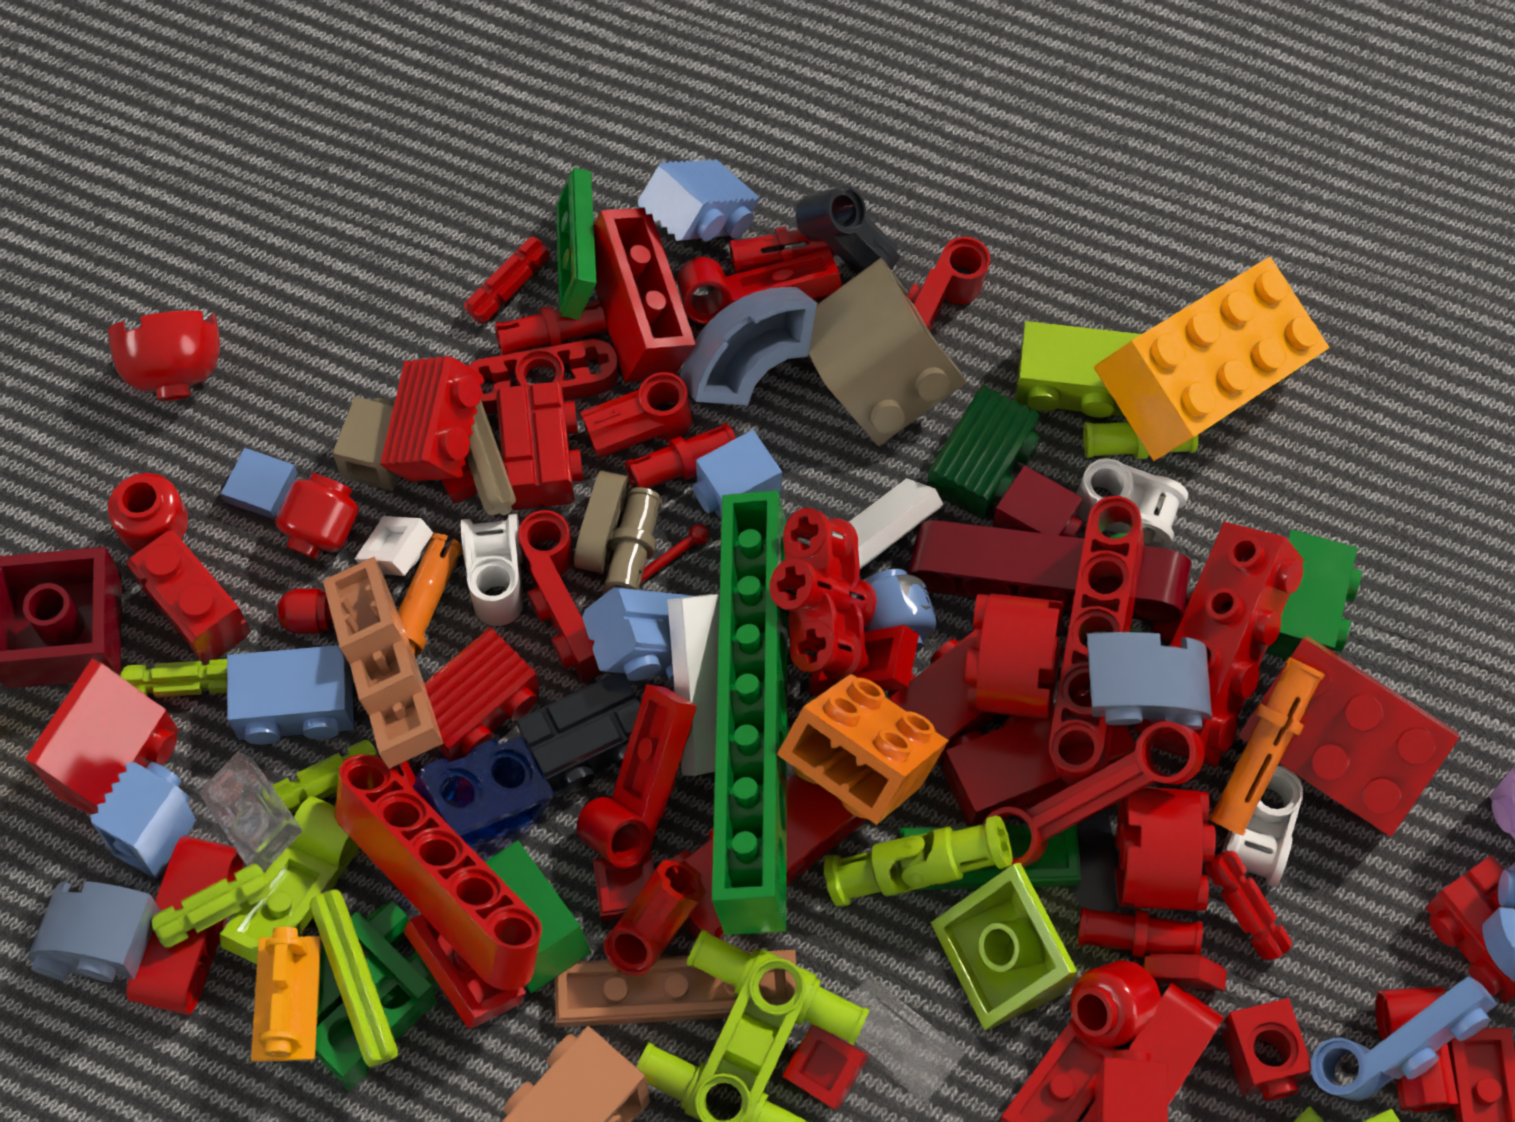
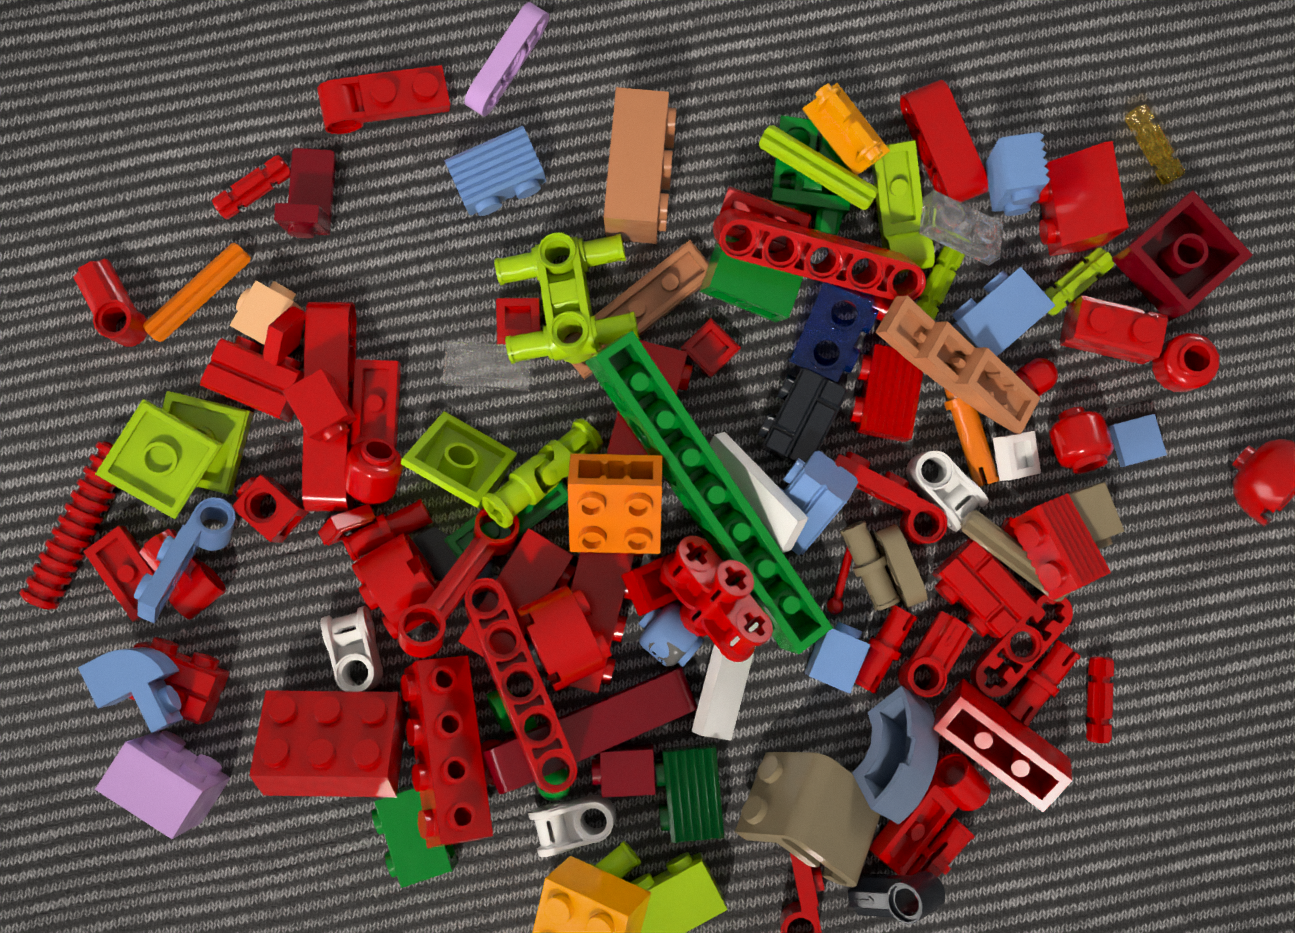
camera: 145 degrees right, 20 degrees up
(93, 932) = (987, 92): sand blue brick -> none
(210, 905) = (933, 151): lime axle -> none
(575, 243) = (1074, 753): green tile -> none
(626, 824) = (736, 379): red plate -> none
(654, 918) = (672, 325): red piece -> none
(699, 200) = (1014, 845): medium blue brick -> none
(1143, 680) = (463, 668): sand blue brick -> none
(1248, 905) = (329, 590): red axle -> none
(1266, 745) = (369, 675): orange pin -> none

